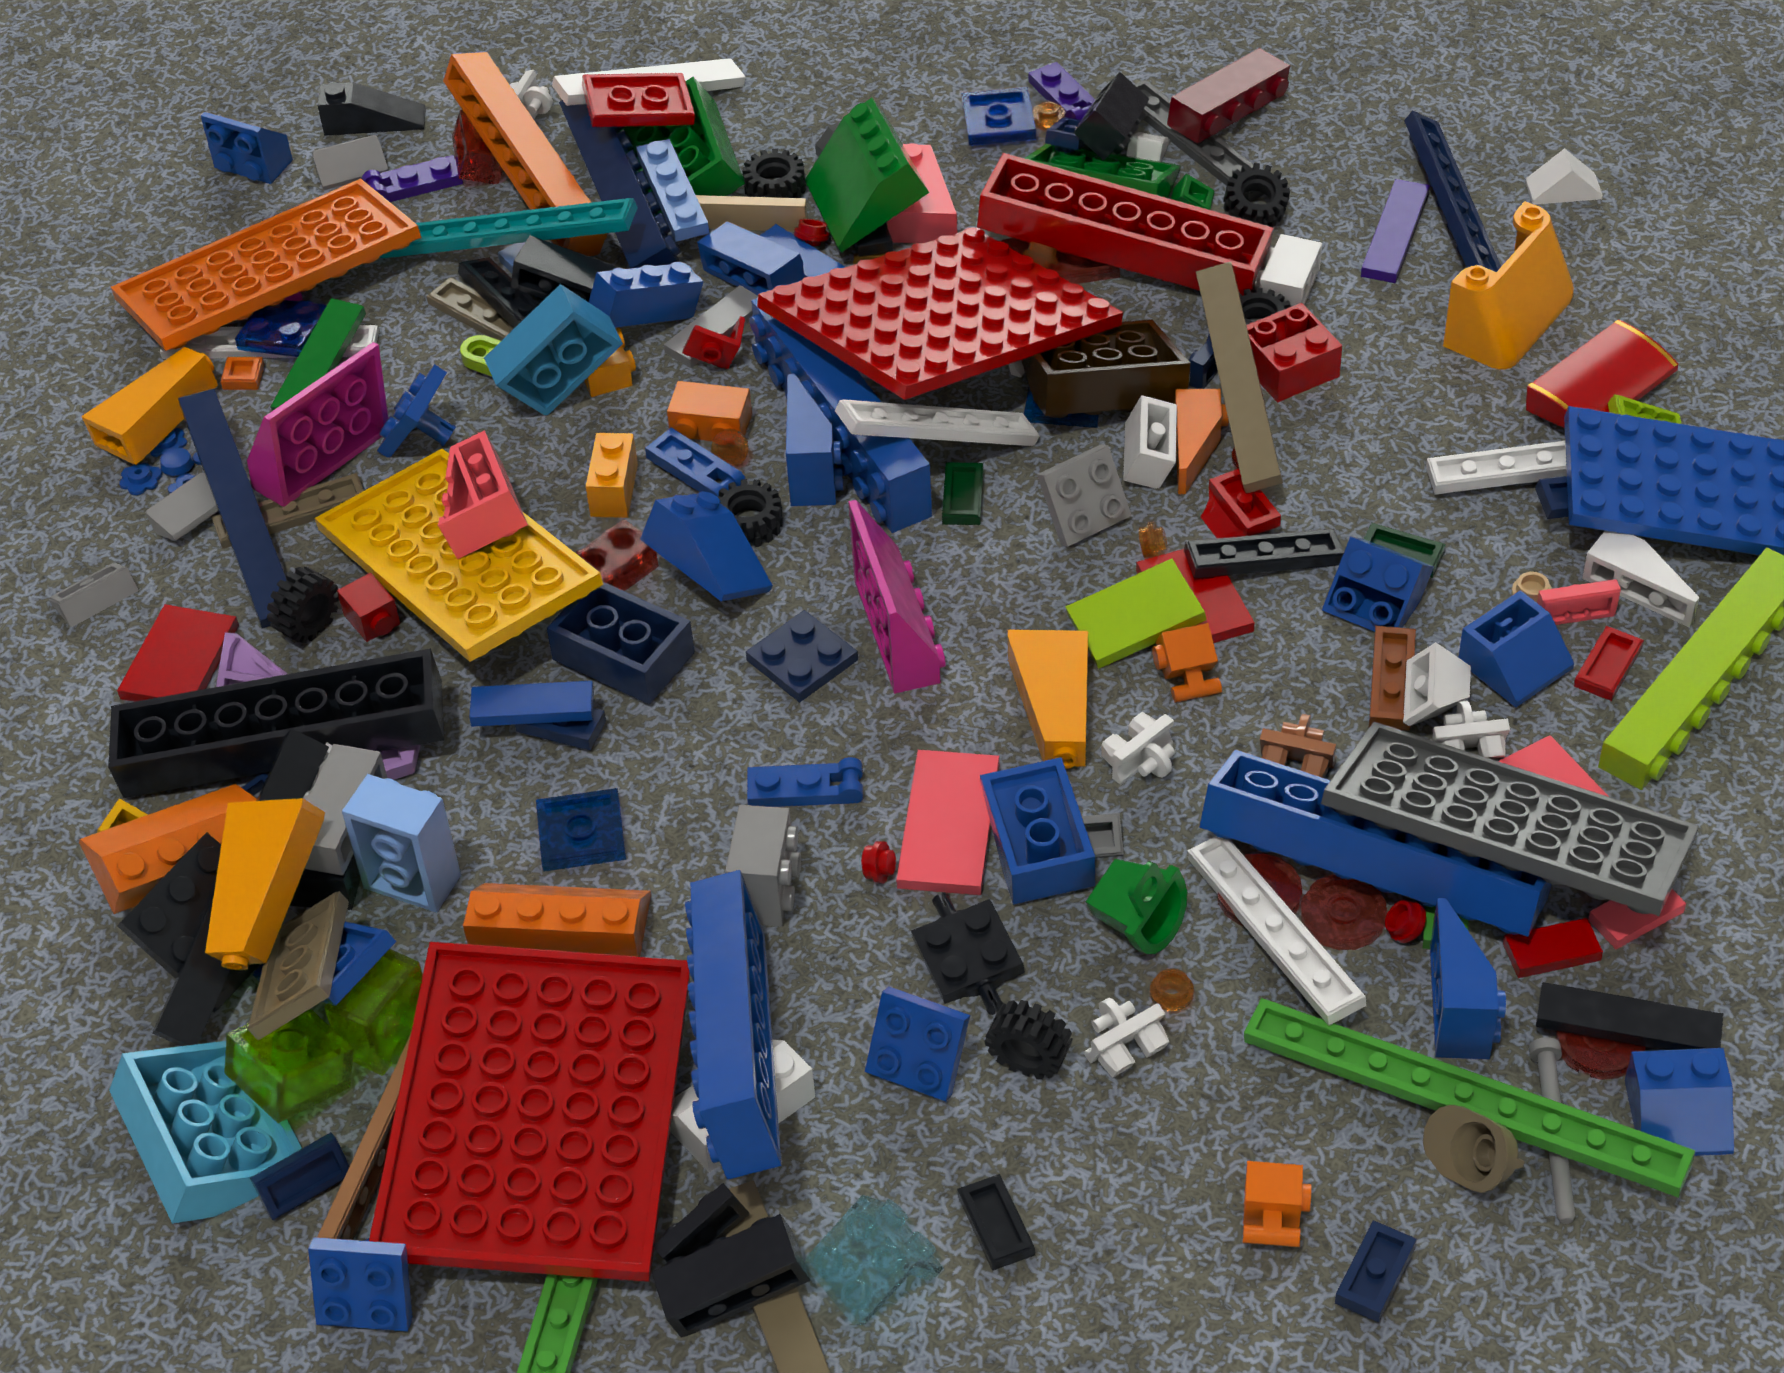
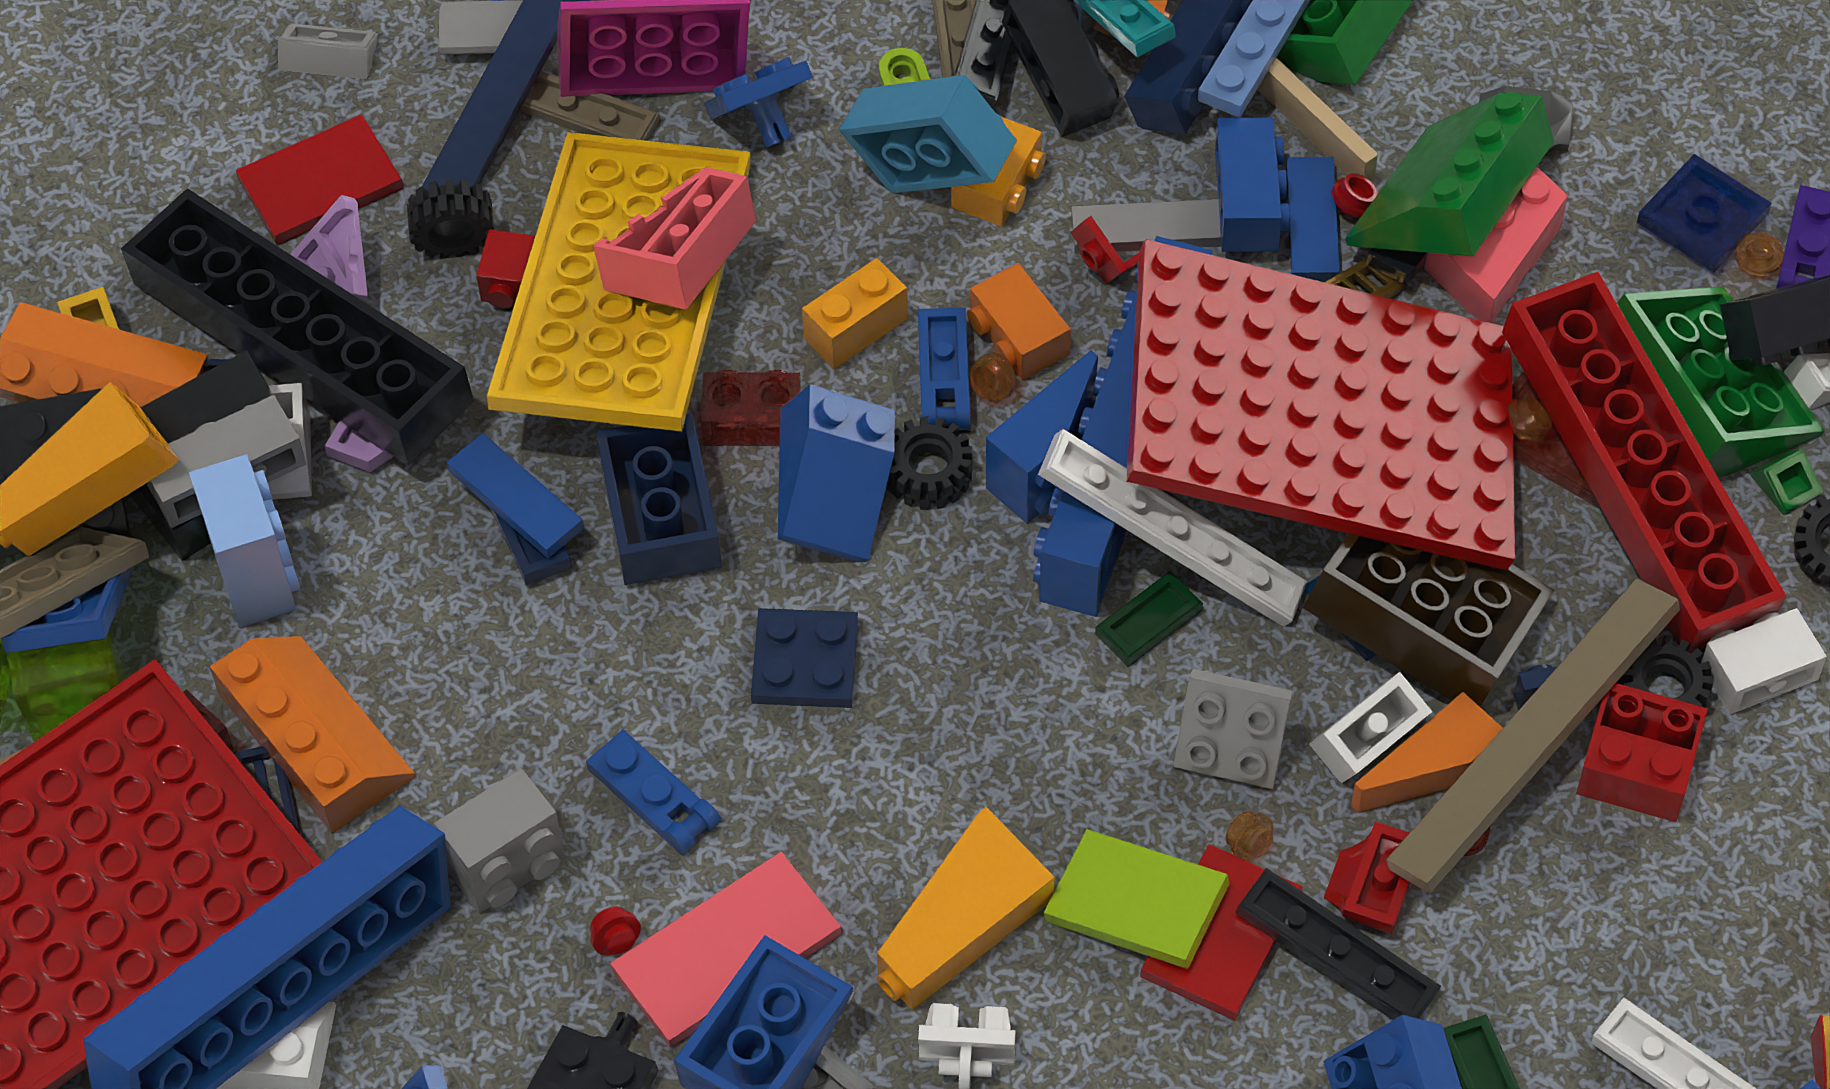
camera: 45 degrees right, 10 degrees up
(580, 829) = (430, 657): clear blue tile -> none
(647, 293) = (1095, 140): blue brick -> none
(770, 165) = (1396, 80): black tyre -> none
(893, 606) = (915, 679): dark pink slope -> none
(1062, 135) = (1725, 288): dark blue plate -> none
(1187, 654) = (1124, 989): orange brick -> none

